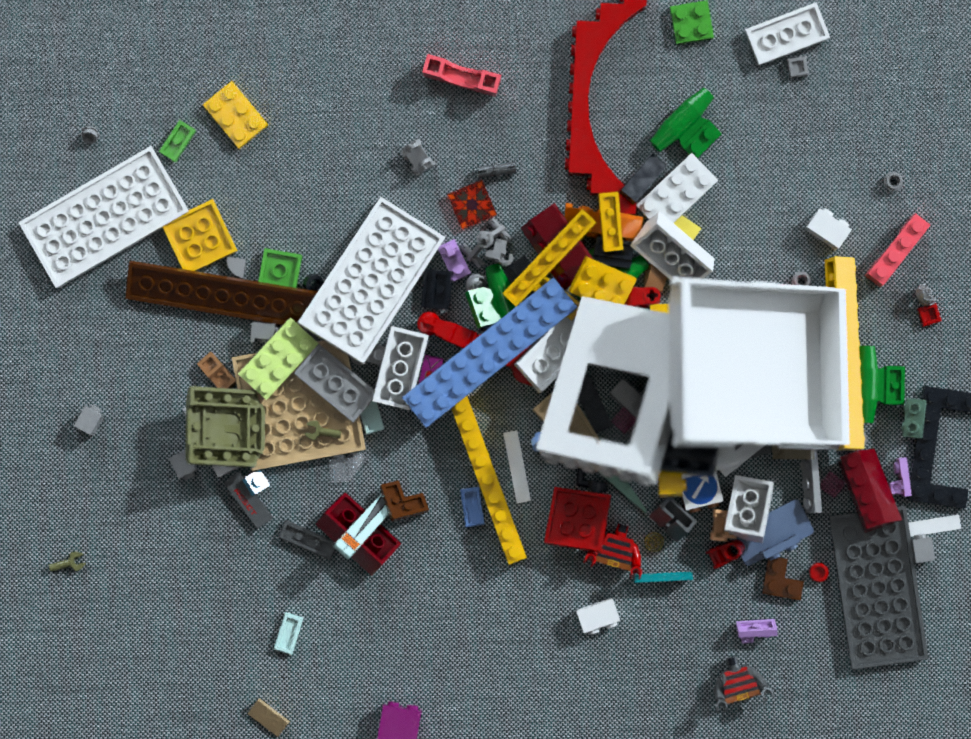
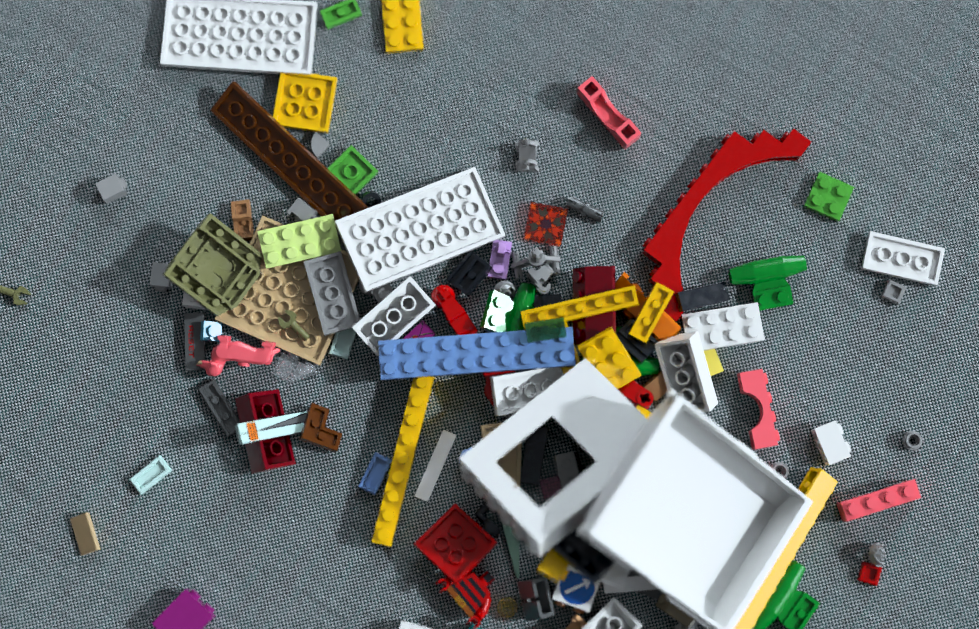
camera: 30 degrees right, 5 degrees down
(290, 484) = (239, 352): none -> coral animal
(534, 295) = (545, 330): none -> clear green plate
(768, 257) = (754, 385): none -> coral arch

